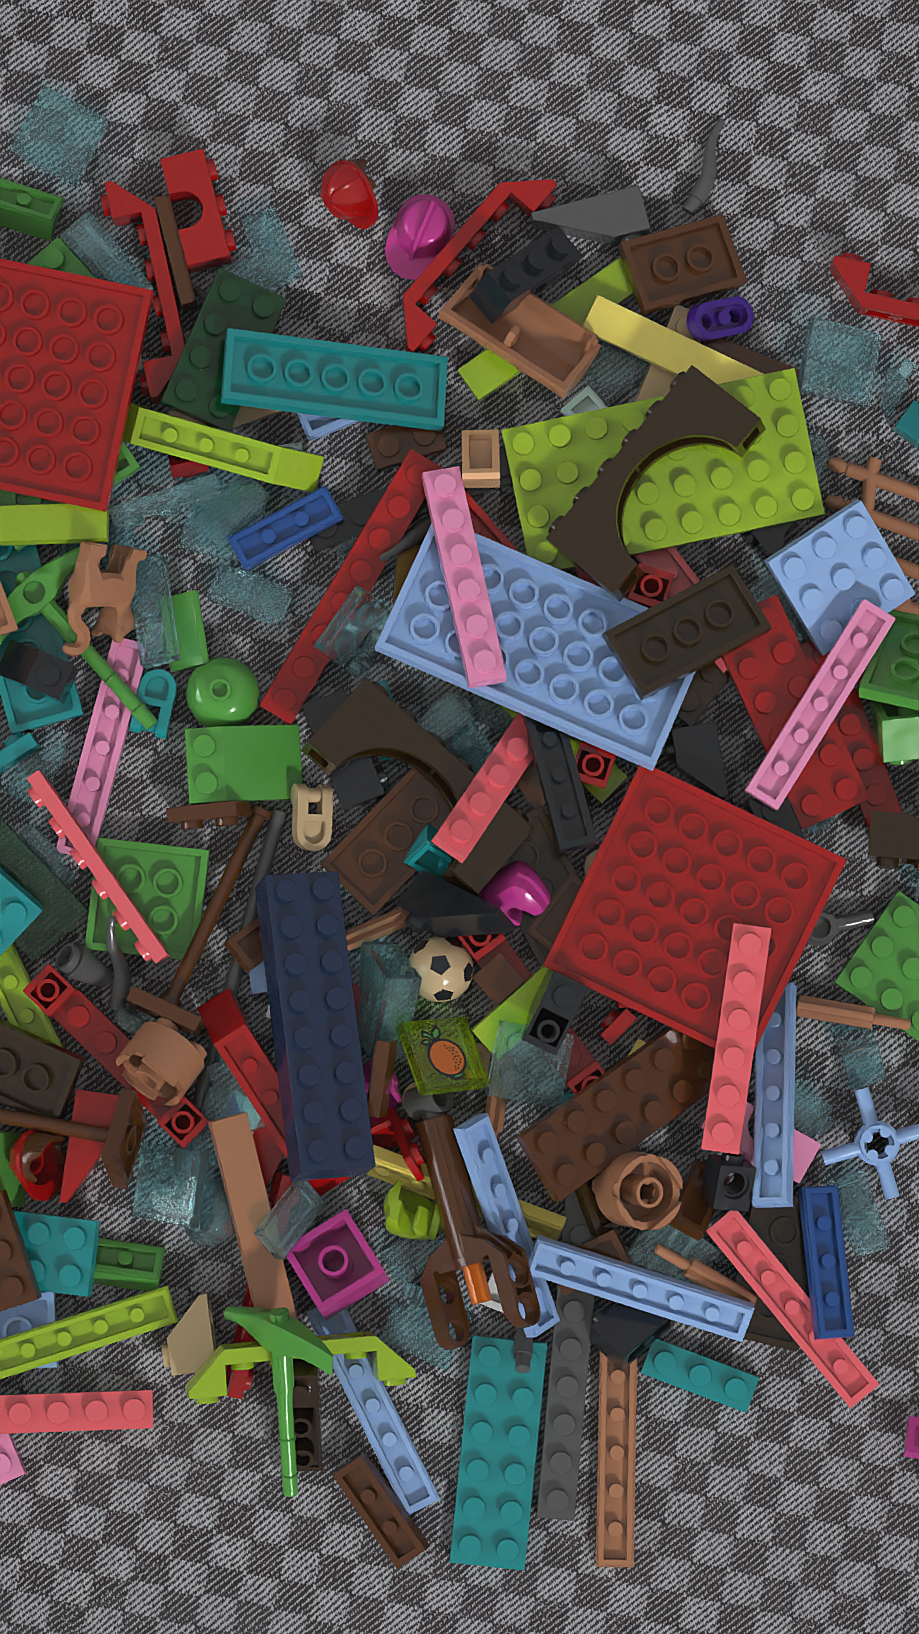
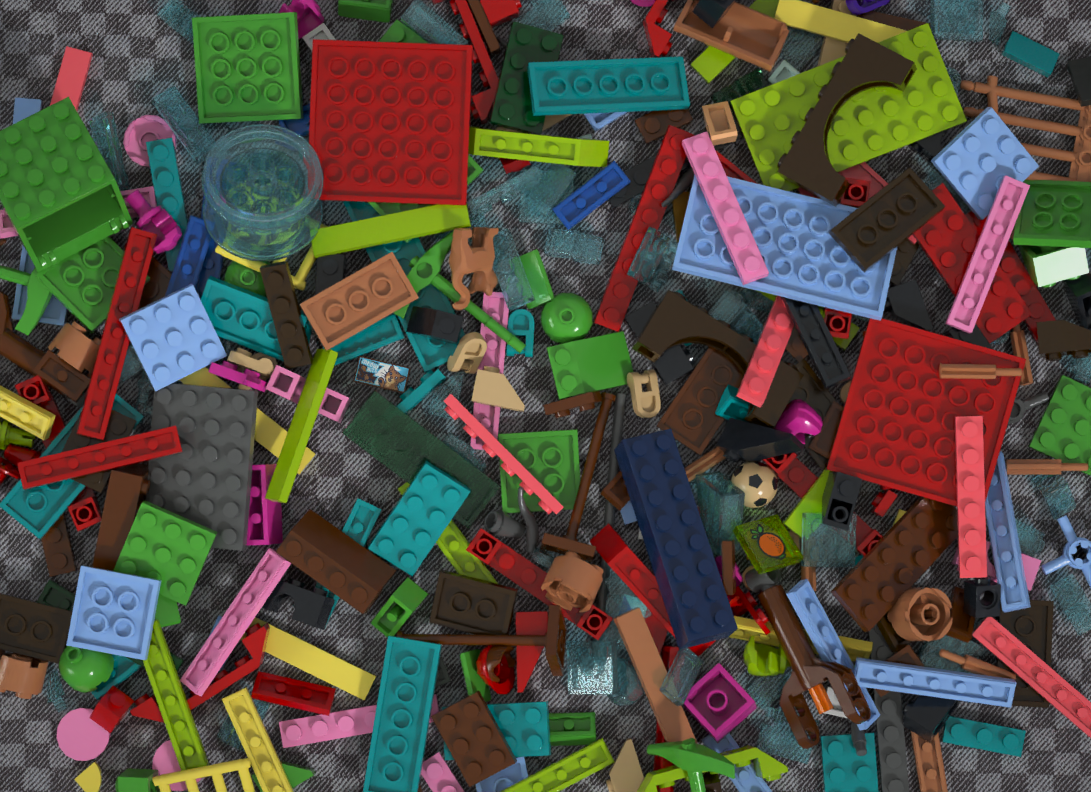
camera: 10 degrees left, 0 degrees up
(80, 711) = (468, 353): none -> tan plate
(103, 776) = (495, 390): none -> tan slope
(498, 979) = (795, 484): reddish brown tile -> none
(524, 412) = (747, 84): none -> clear green slope
(773, 864) = (975, 371): none -> nougat axle
(826, 1262) = (1059, 642): blue tile -> none
(846, 847) = (1020, 350): none -> nougat axle

